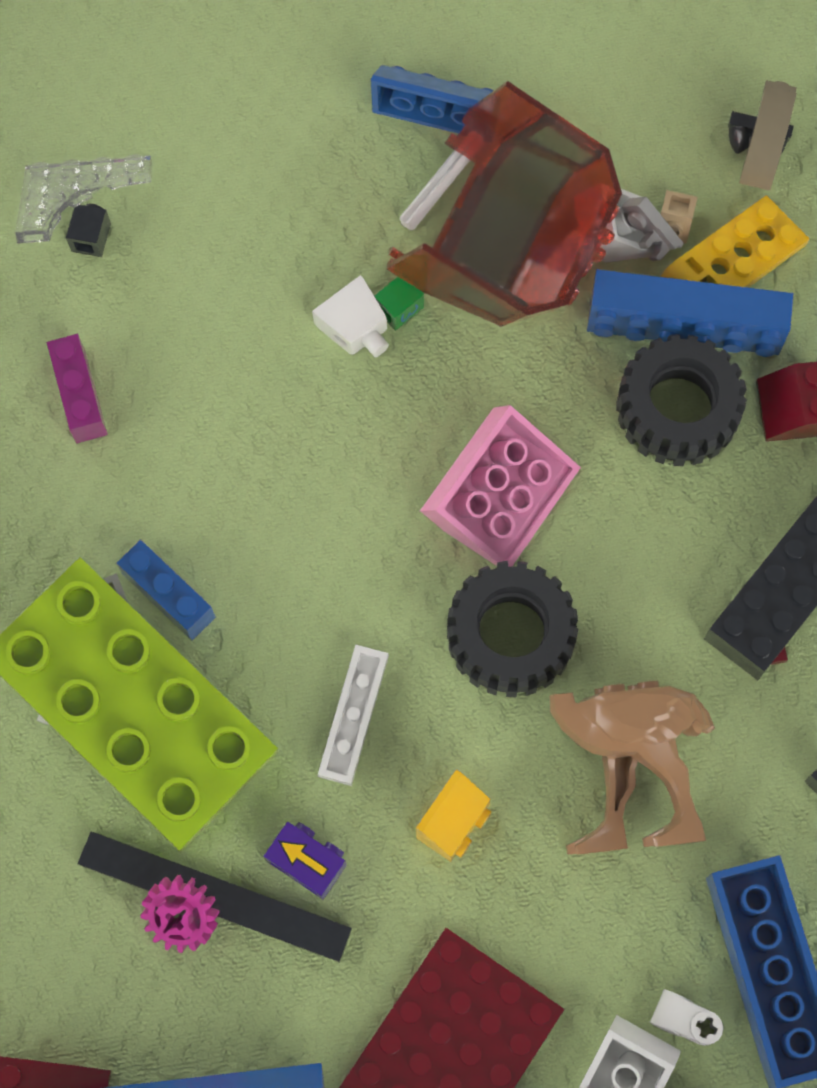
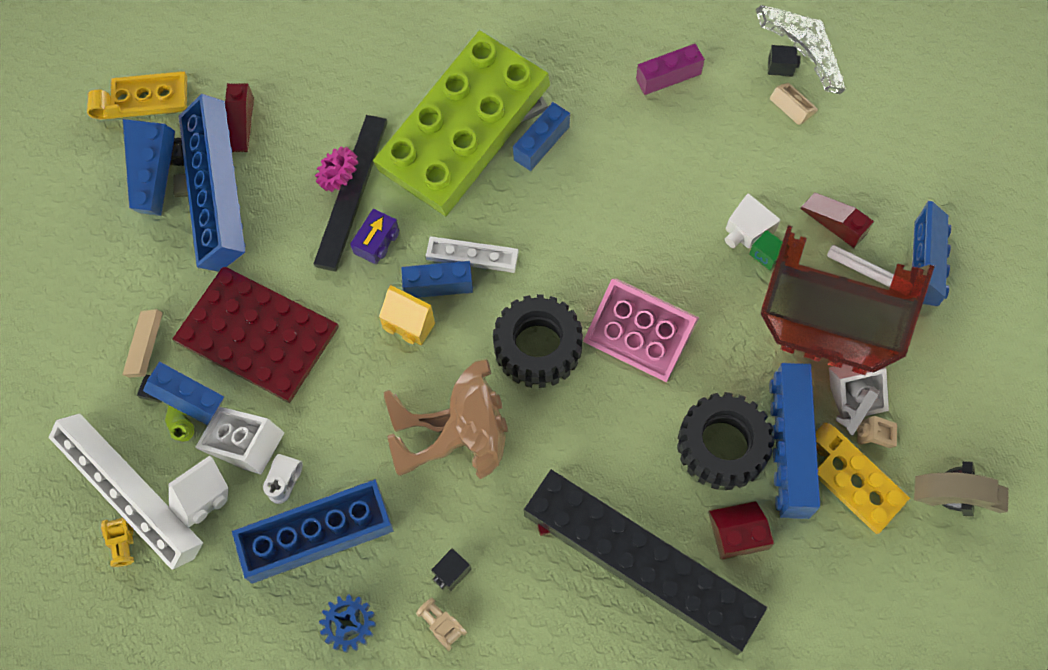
camera: 85 degrees right, 5 degrees down
(160, 230) = (793, 103): none -> tan slope
(359, 203) = (839, 218): none -> dark red slope
(392, 768) = (437, 279): none -> blue brick

